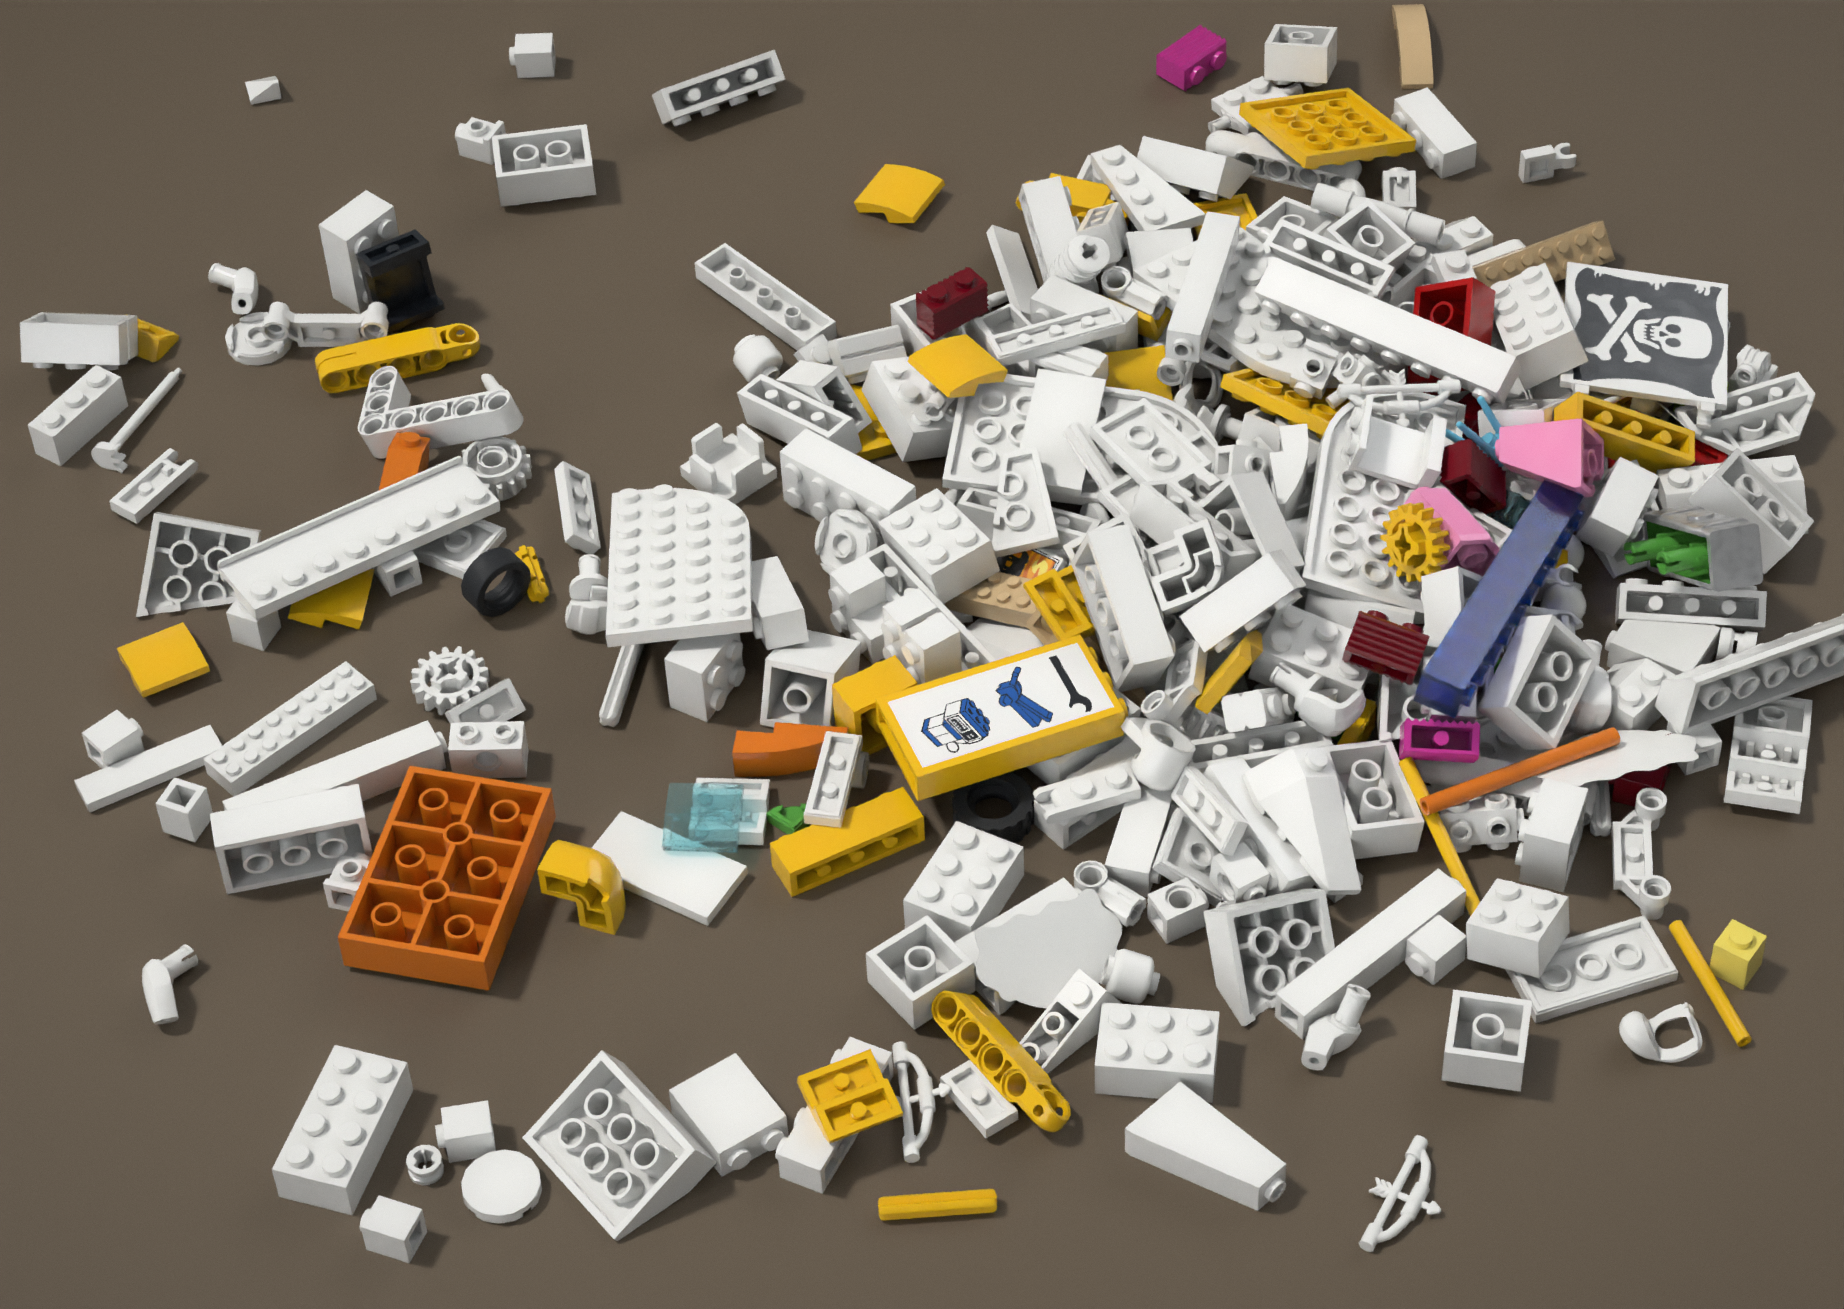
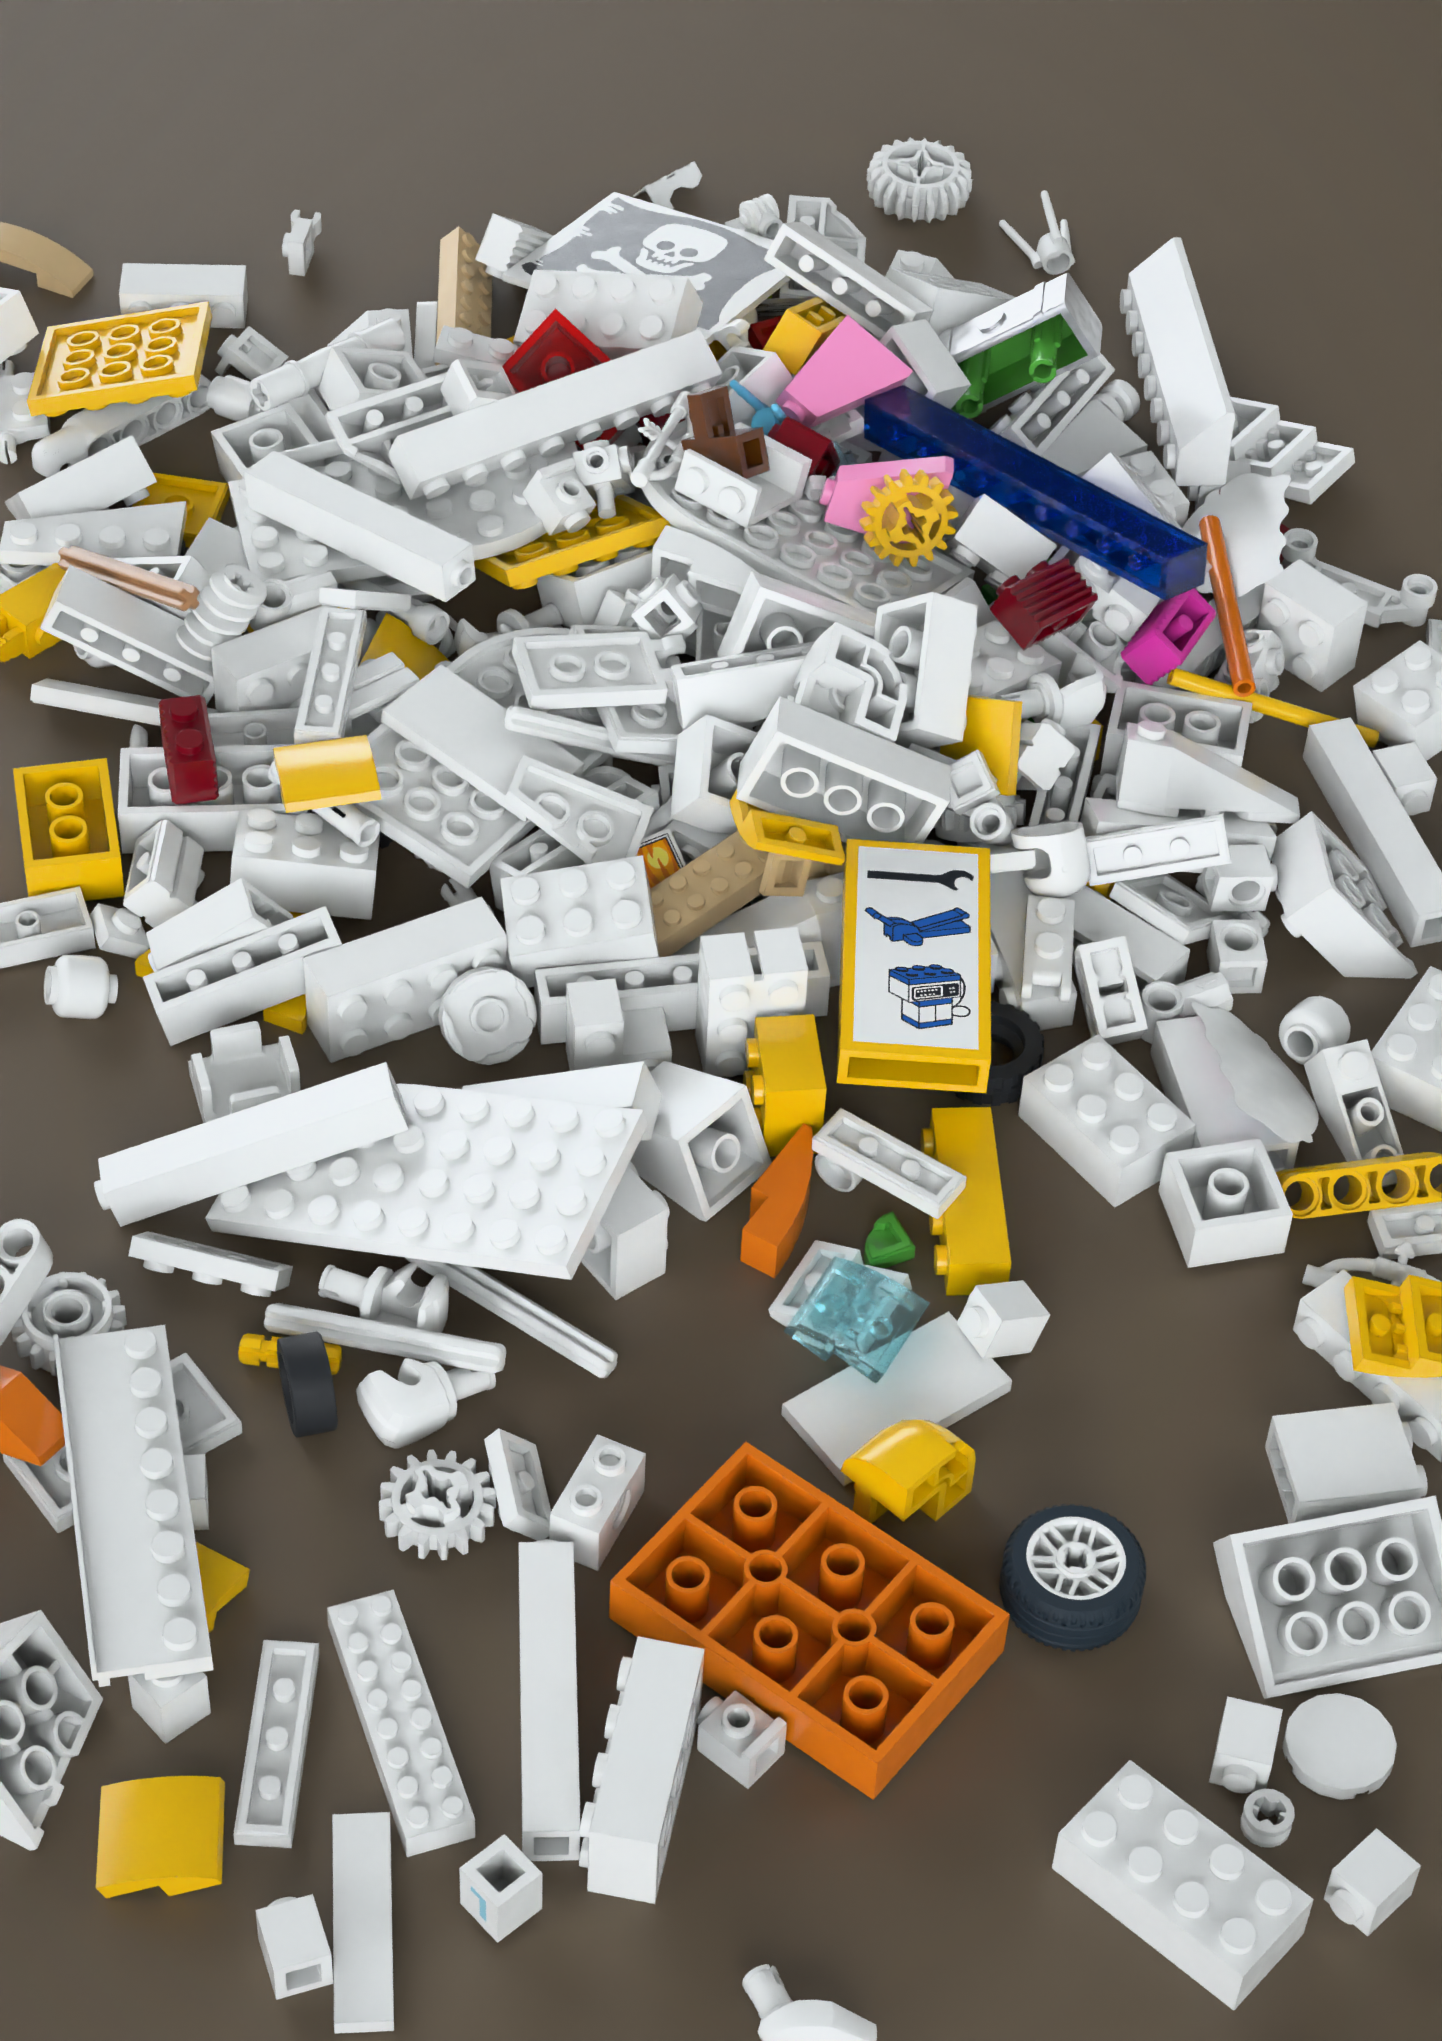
camera: 70 degrees left, 0 degrees up
(252, 684) = (276, 1744): none -> white tile
(523, 641) = (419, 1401): none -> white piece
(553, 998) = (1072, 1577): none -> black wheel
(556, 604) = (387, 1337): none -> white axle
(658, 478) = (251, 1145): none -> white brick
(746, 889) = (1003, 1319): none -> white brick
(863, 293) = (69, 829): none -> yellow brick
(1070, 839) = (1109, 990): none -> white brick
(1082, 210) = (131, 578): none -> axle
(1144, 319) = (364, 599): none -> white tile
(1179, 676) = (971, 782): none -> white tile
(1357, 272) = (474, 385): none -> white slope
(1413, 413) = (717, 438): none -> reddish brown brick
(1609, 249) = (508, 243): none -> white brick
(1679, 426) = (843, 279): none -> white brick
(1775, 315) = (662, 189): none -> white piece

